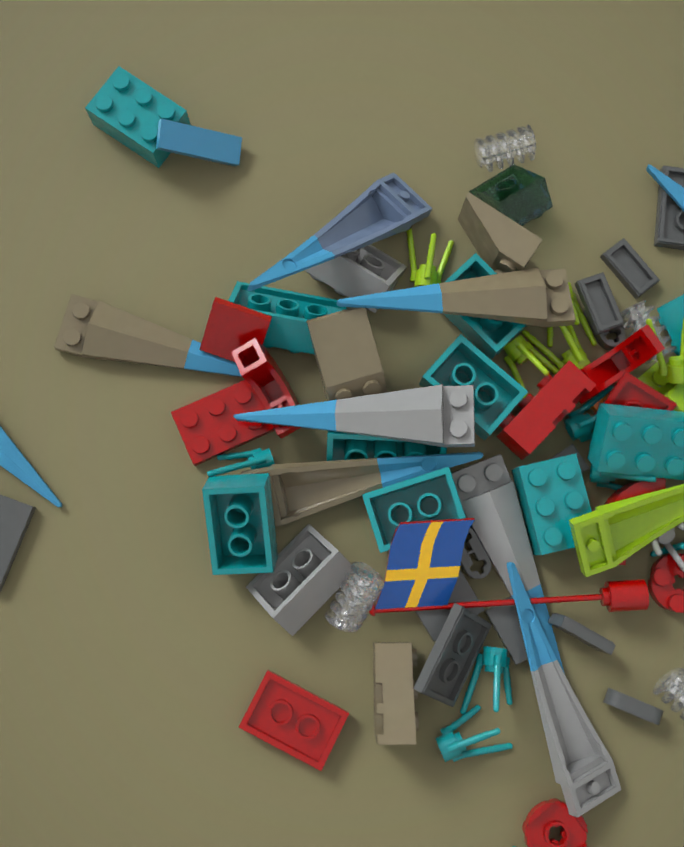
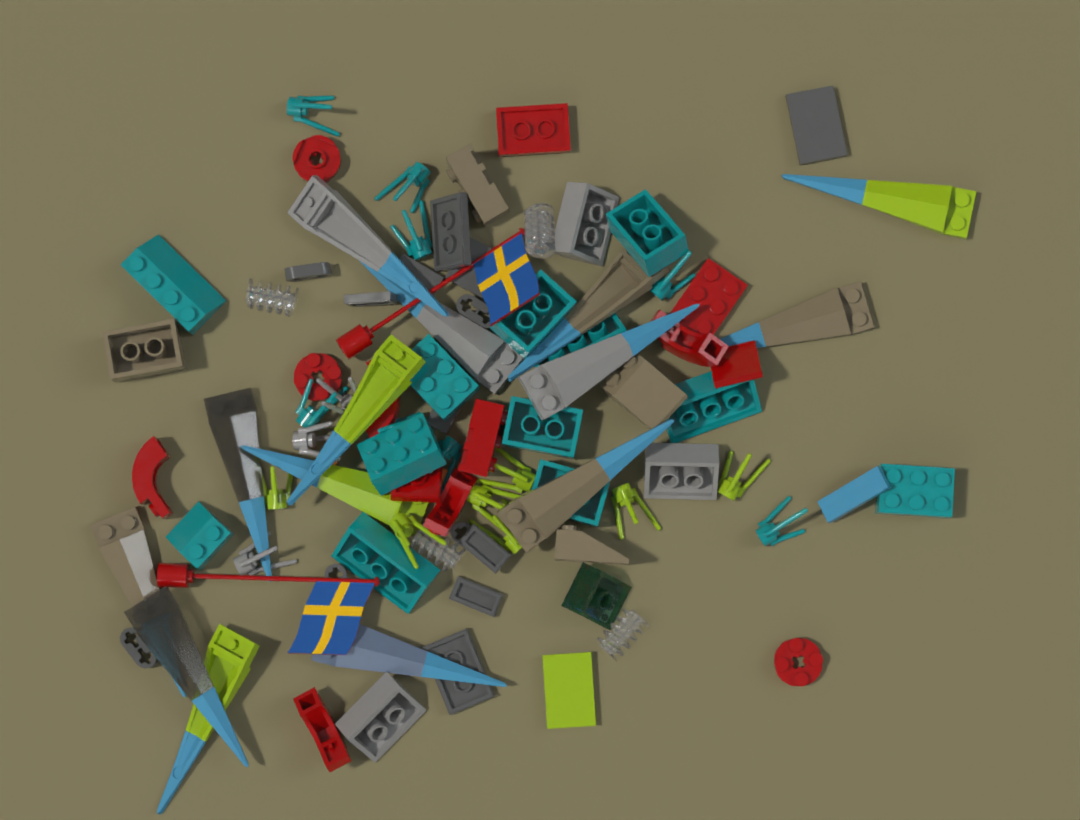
camera: 160 degrees right, 5 degrees up
(304, 161) = (769, 532): none -> teal plant
(311, 223) = (731, 487): none -> lime plant
(355, 22) = (801, 675): none -> red plate
(376, 214) = (687, 518): sand blue plate -> none
(586, 132) = (569, 690): none -> lime tile

